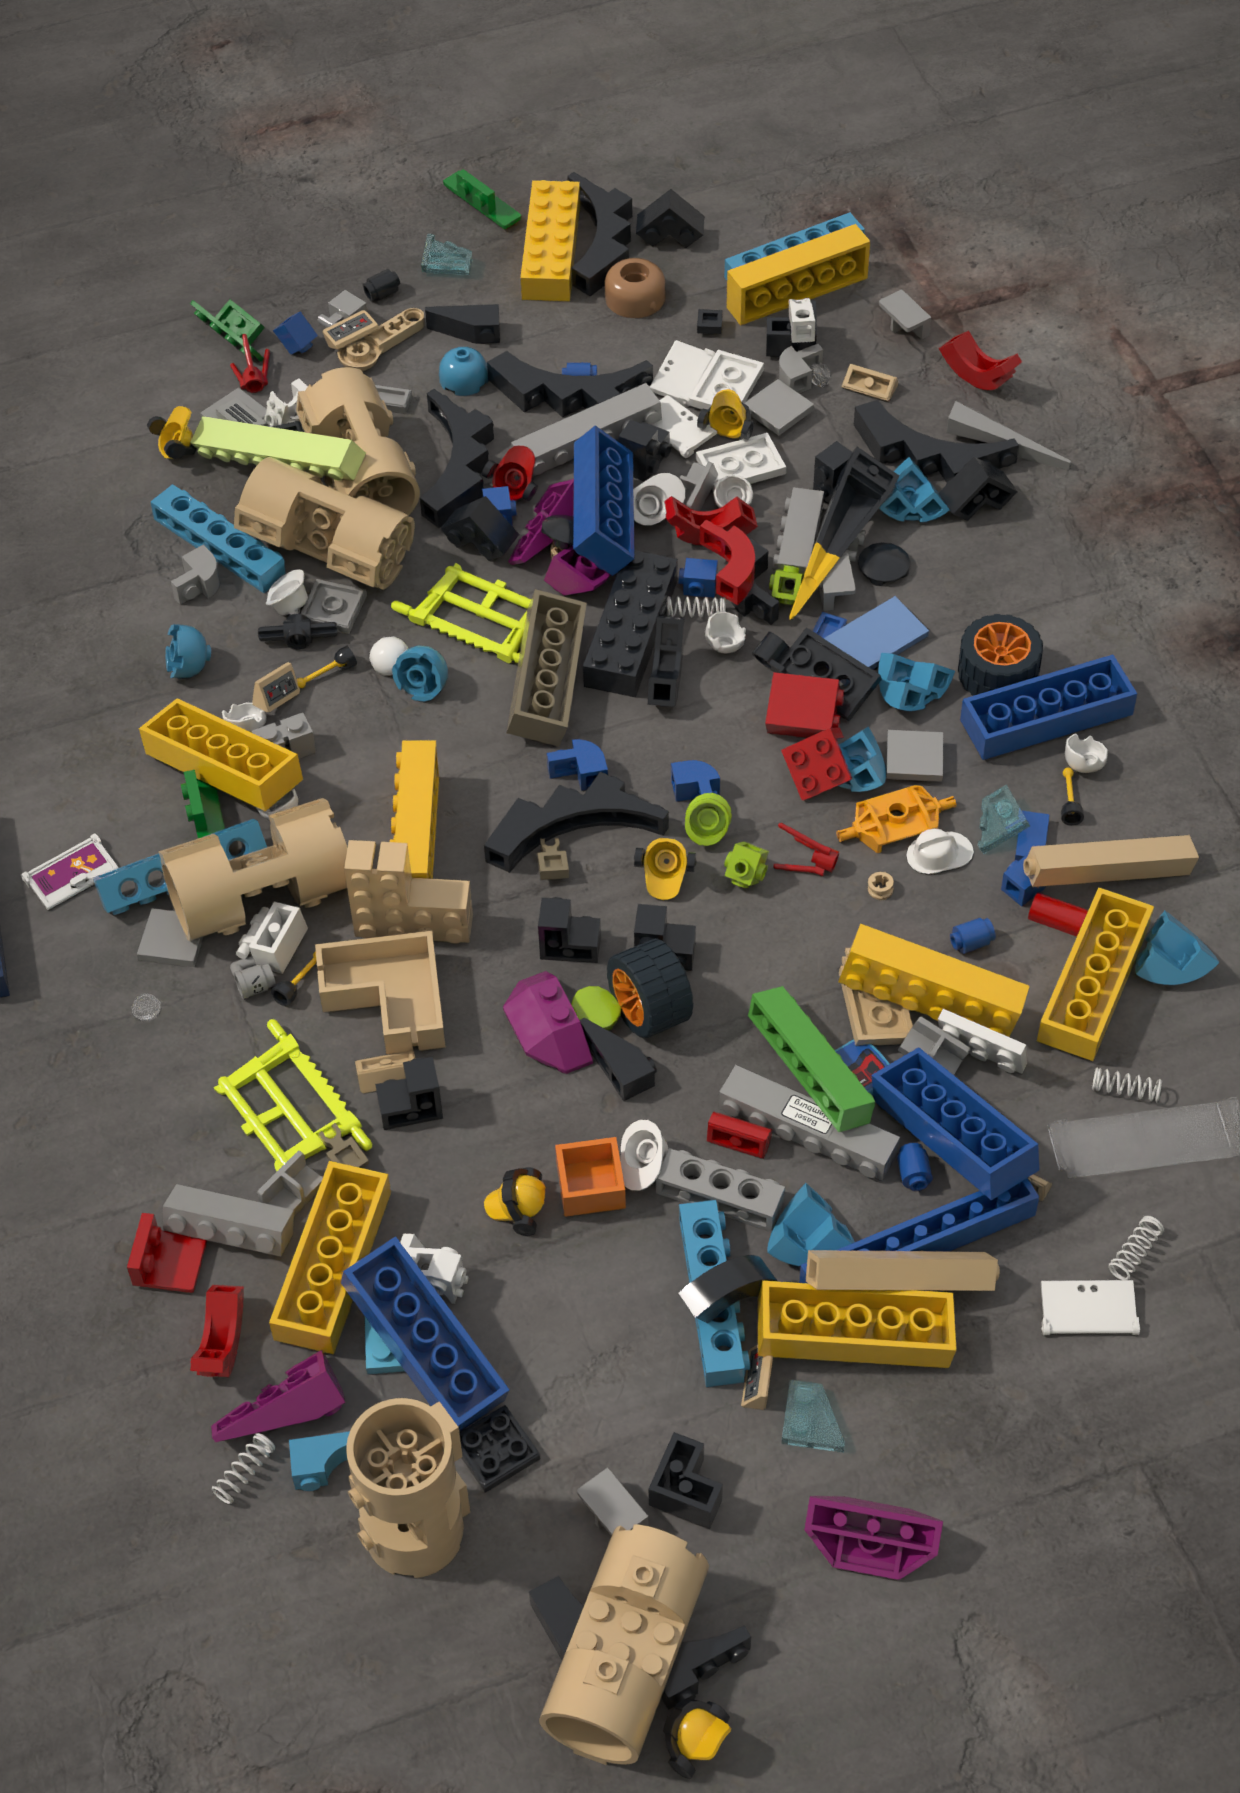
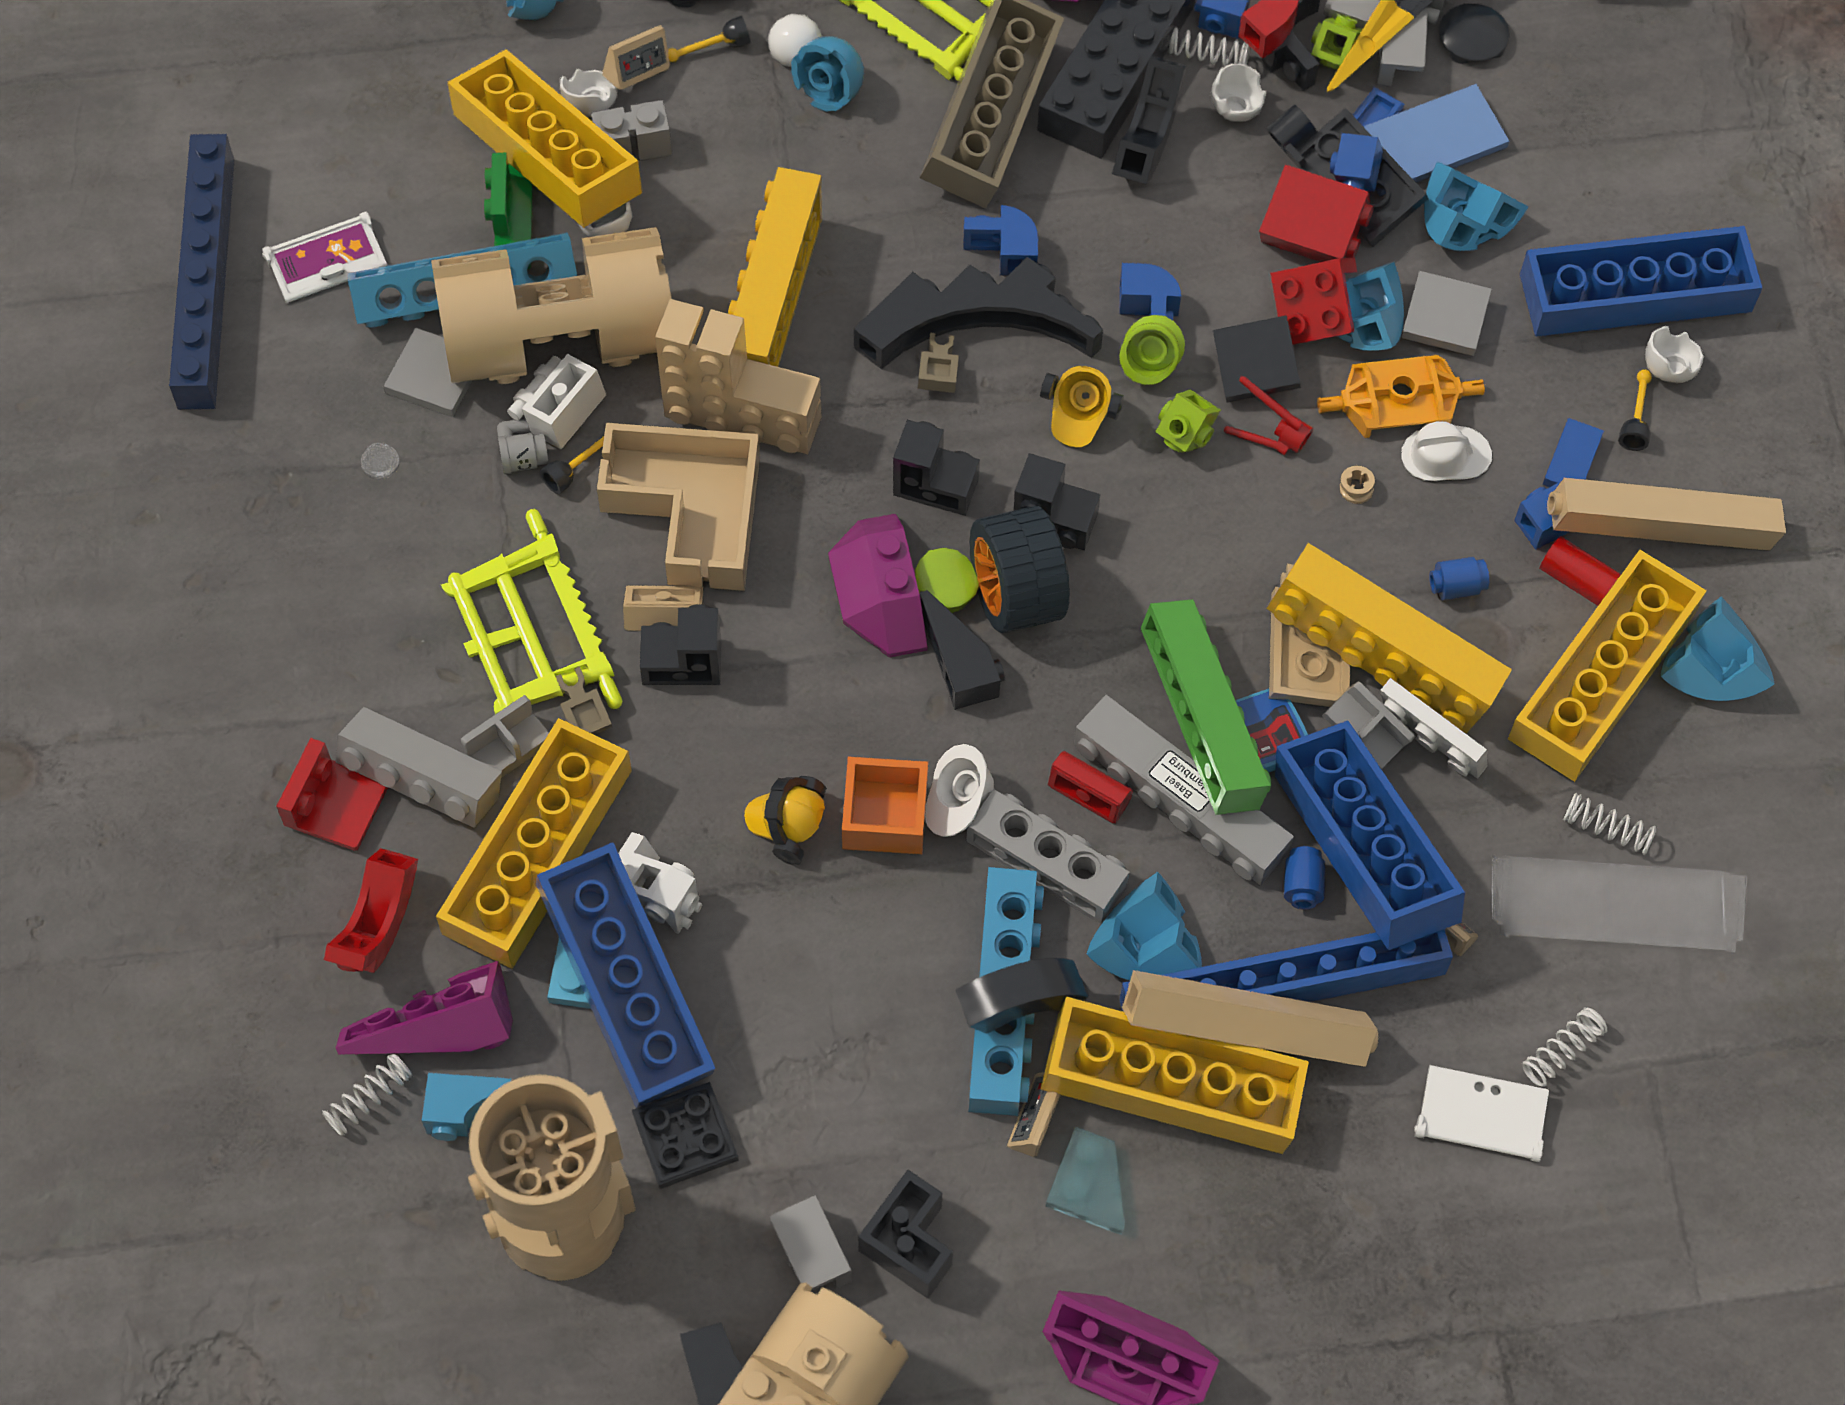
camera: 10 degrees right, 10 degrees up
(786, 805) = (1260, 353): none -> black tile
(825, 660) = (1357, 161): none -> blue brick
(998, 653) = (1592, 194): black wheel -> none
(1000, 819) = (1537, 425): clear light blue wing -> none

